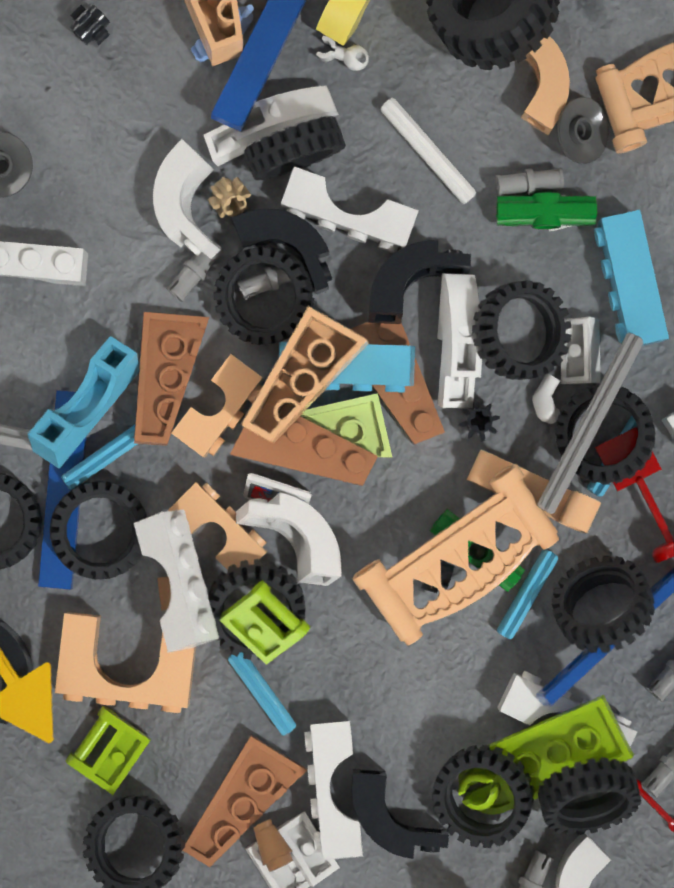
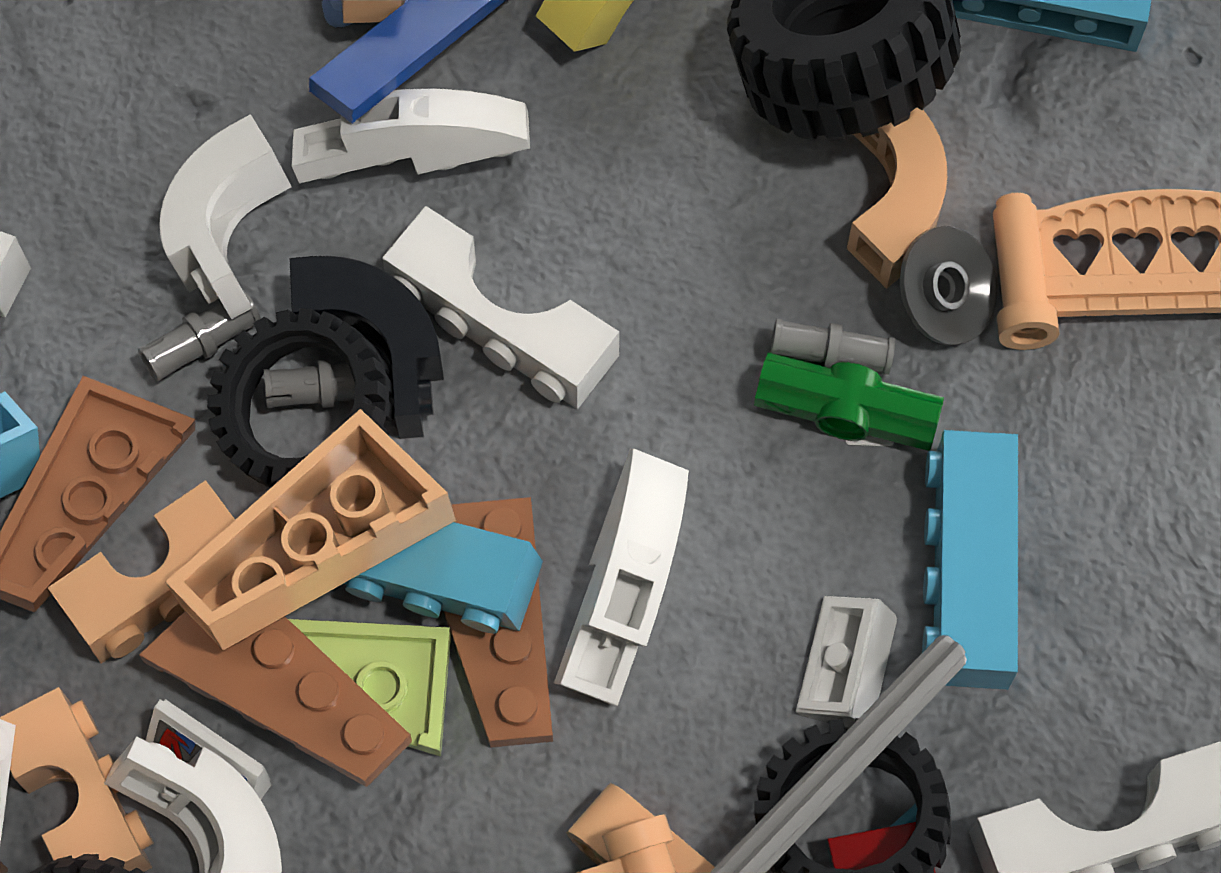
camera: 20 degrees right, 20 degrees down
(229, 197) = (286, 226): tan gear -> none
(294, 147) = (433, 138): black tyre -> none
(350, 56) = (587, 77): white arm -> none
(404, 269) = (564, 428): black arch -> none
(428, 151) = (669, 255): white axle -> none
(483, 413) = (639, 732): black gear -> none
(543, 400) = (754, 729): white arm -> none
(553, 320) = (805, 561): black tyre -> none

